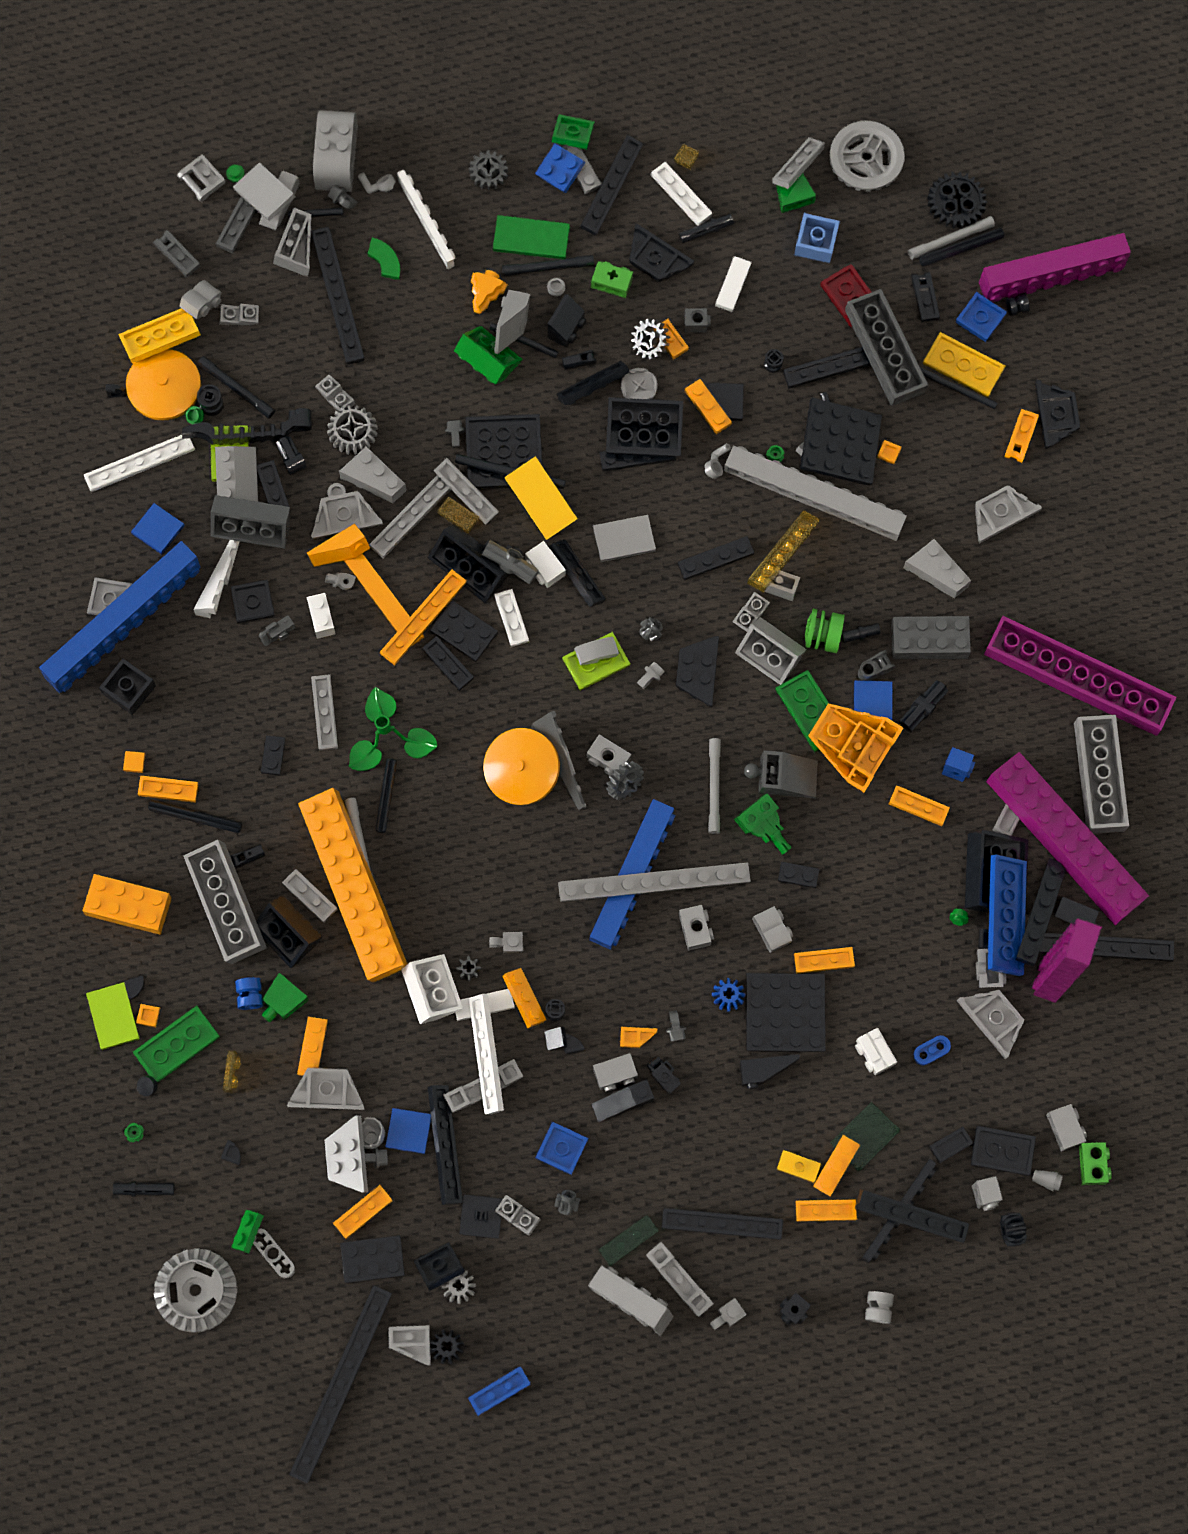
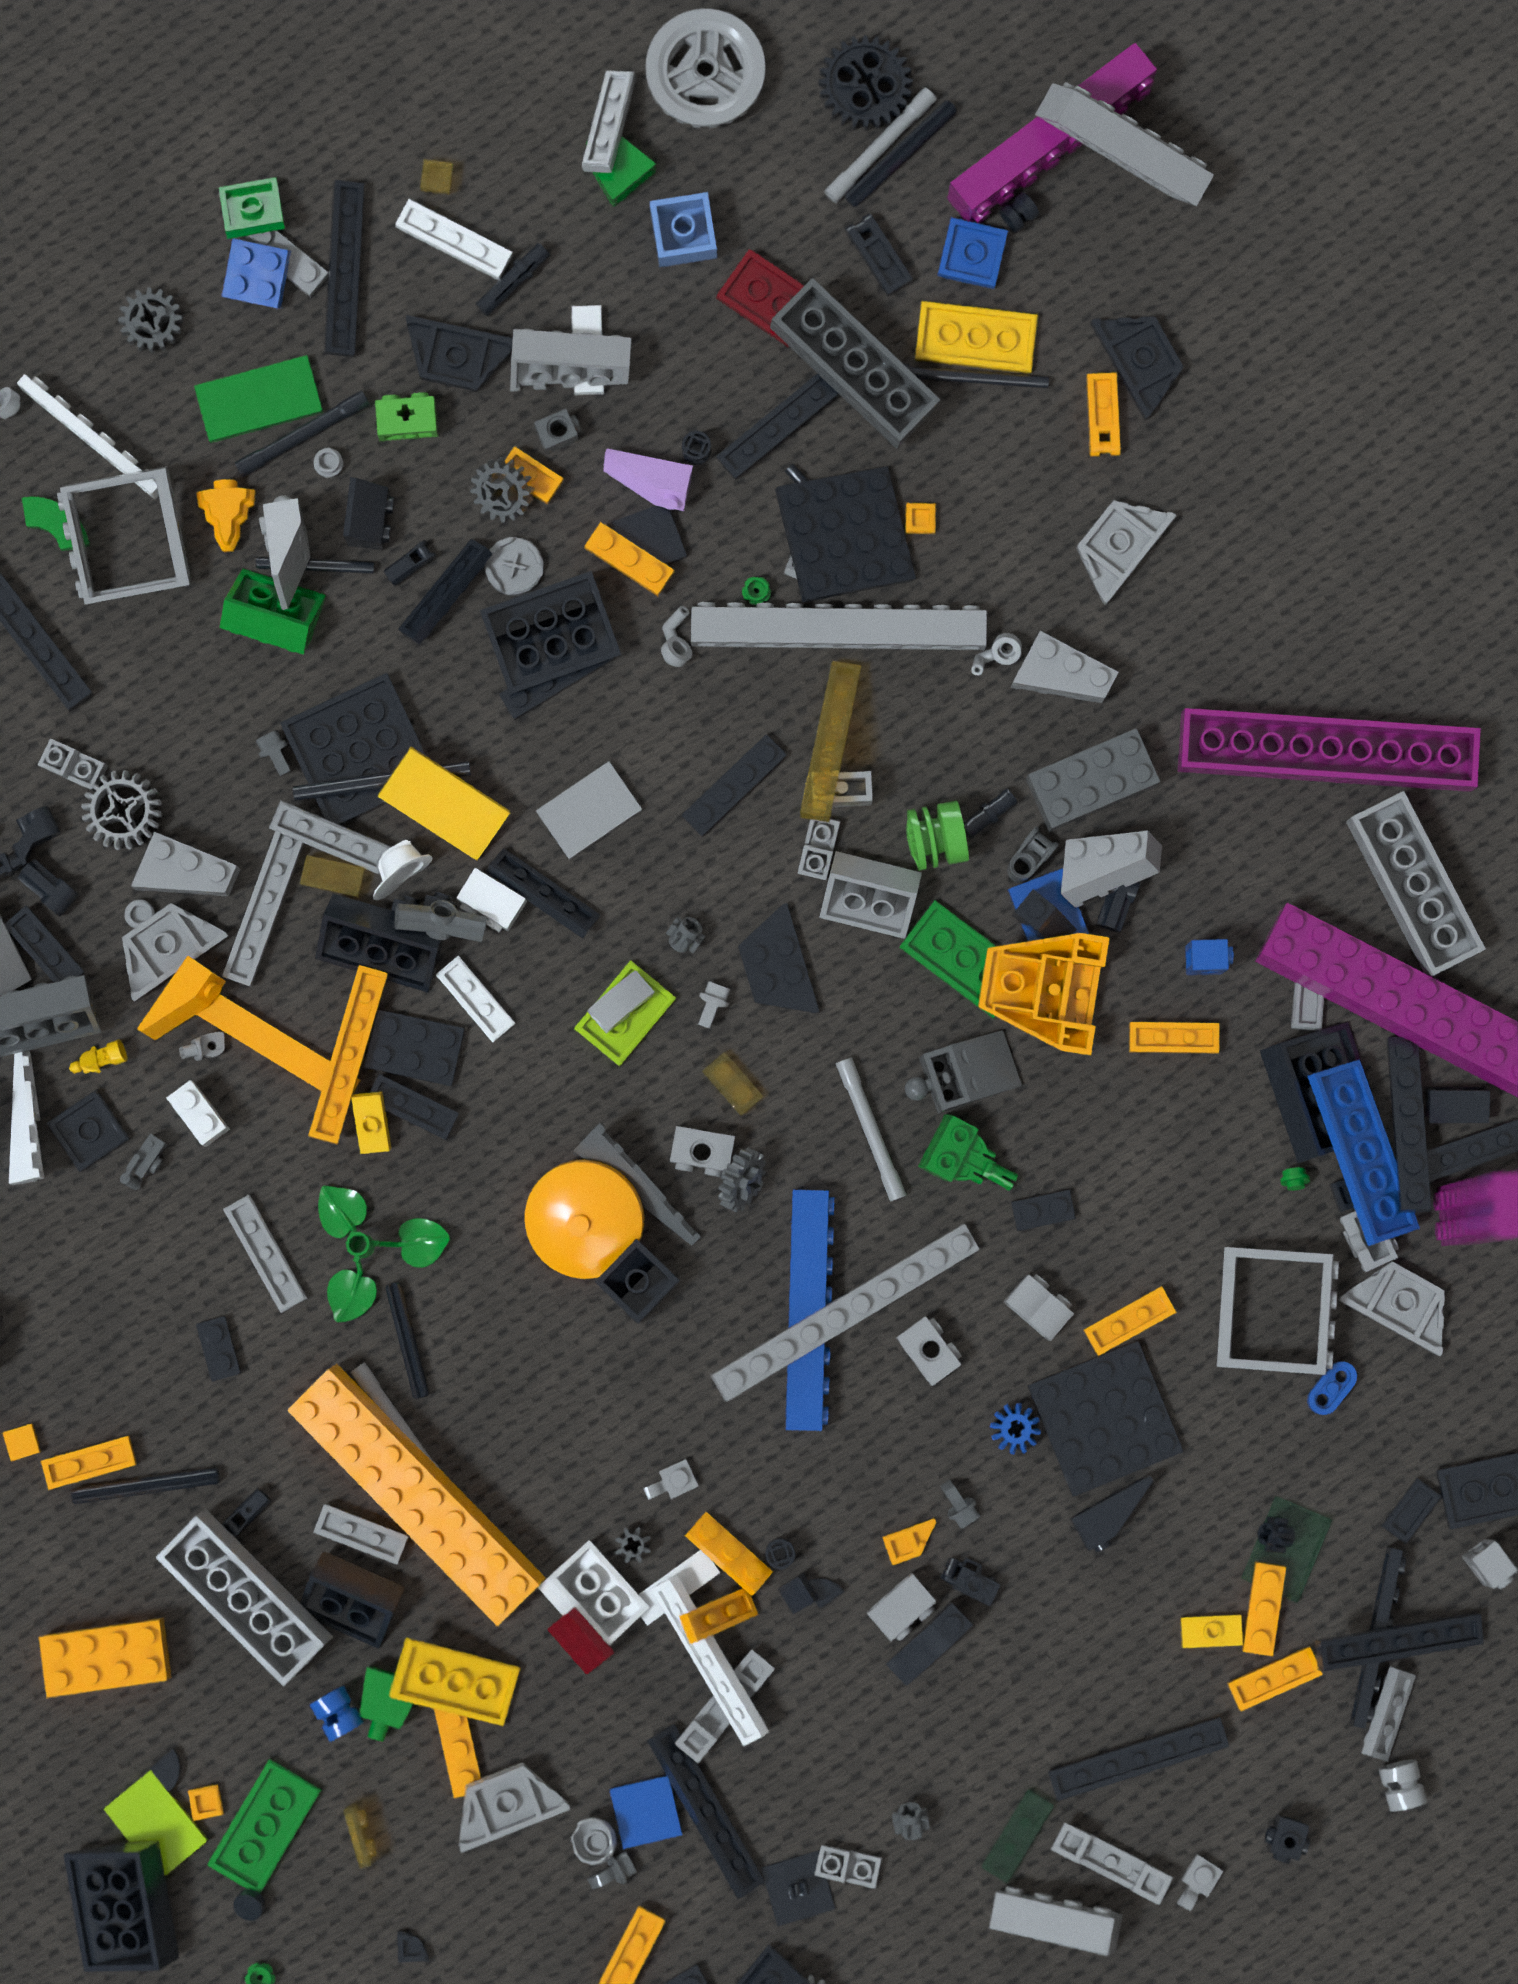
camera: 25 degrees left, 10 degrees up
(71, 1054) = (122, 1907): none -> black slope
(271, 562) = (95, 1059): none -> yellow piece
(327, 1003) = (454, 1681): none -> yellow tile
(346, 1156) = (576, 1888): wing -> none
(393, 263) = (79, 558): none -> light grey window
(413, 1009) = (580, 1640): none -> dark red tile
(419, 661) = (371, 1122): none -> yellow plate
(499, 524) = (397, 866): none -> white piece
(502, 1028) = (718, 1615): none -> light orange plate
(537, 815) = (637, 1281): none -> black slope
(561, 1148) = (871, 1746): blue plate -> none
(642, 726) = (732, 1084): none -> clear yellow plate
(718, 282) = (568, 359): none -> light grey wedge
(739, 366) = (654, 479): none -> lavender slope
(862, 1122) = (1276, 1535): none -> black gear
(867, 700) = (1042, 917): none -> black slope
(875, 1051) = (1254, 1423): white brick -> none
(886, 977) = (1328, 1302): none -> light grey window
(888, 1260) = (1388, 1714): none -> light grey plate
(903, 544) = (997, 653): none -> light grey plate
(920, 684) = (1107, 862): none -> light grey wedge
(1095, 284) = (1125, 143): none -> light grey brick

